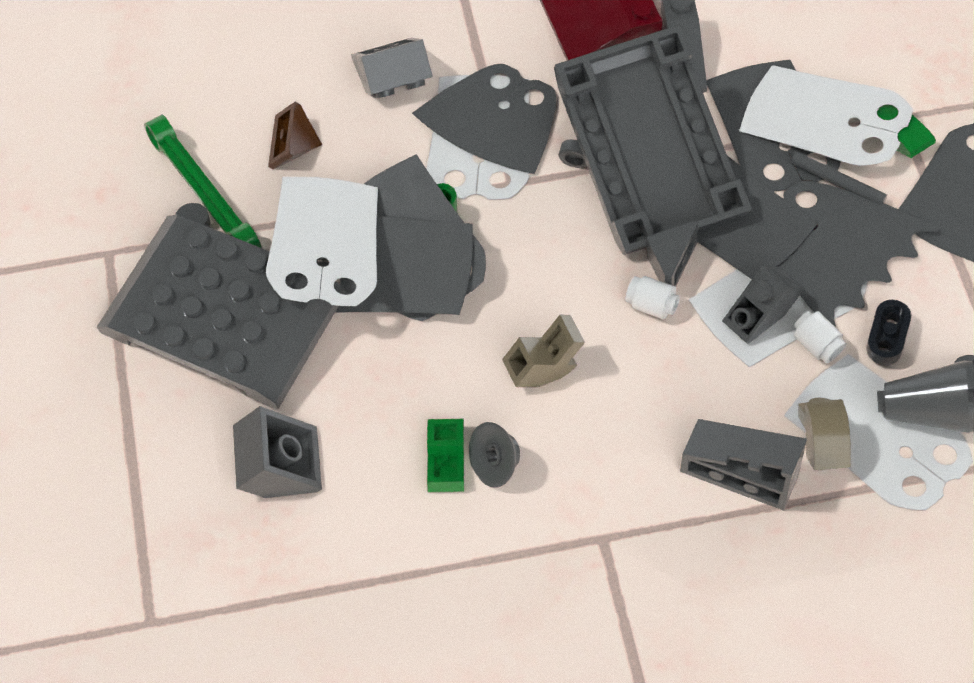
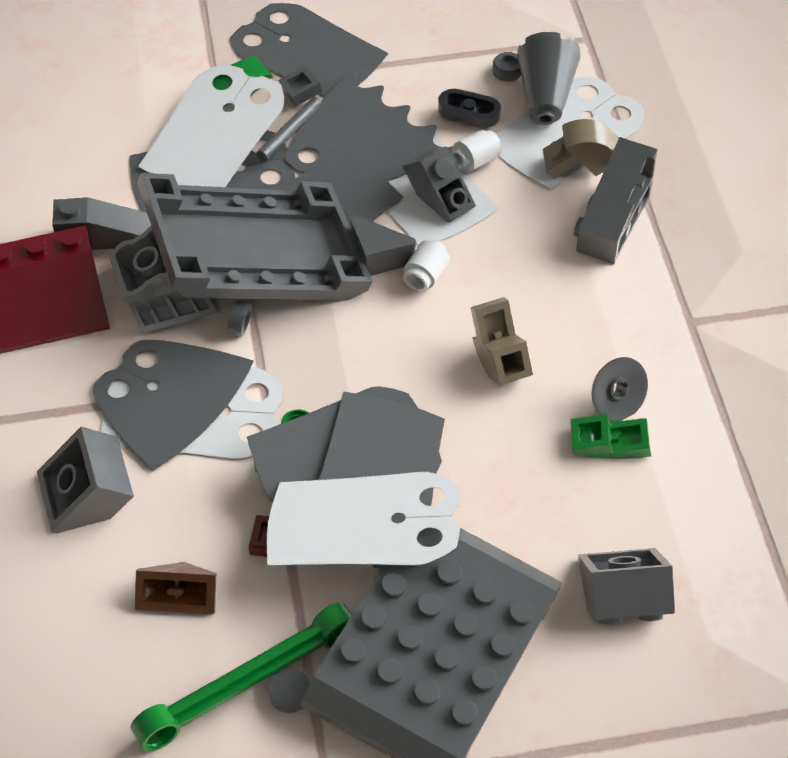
camera: 90 degrees left, 5 degrees down
(898, 180) = (300, 85): none -> dark grey plate

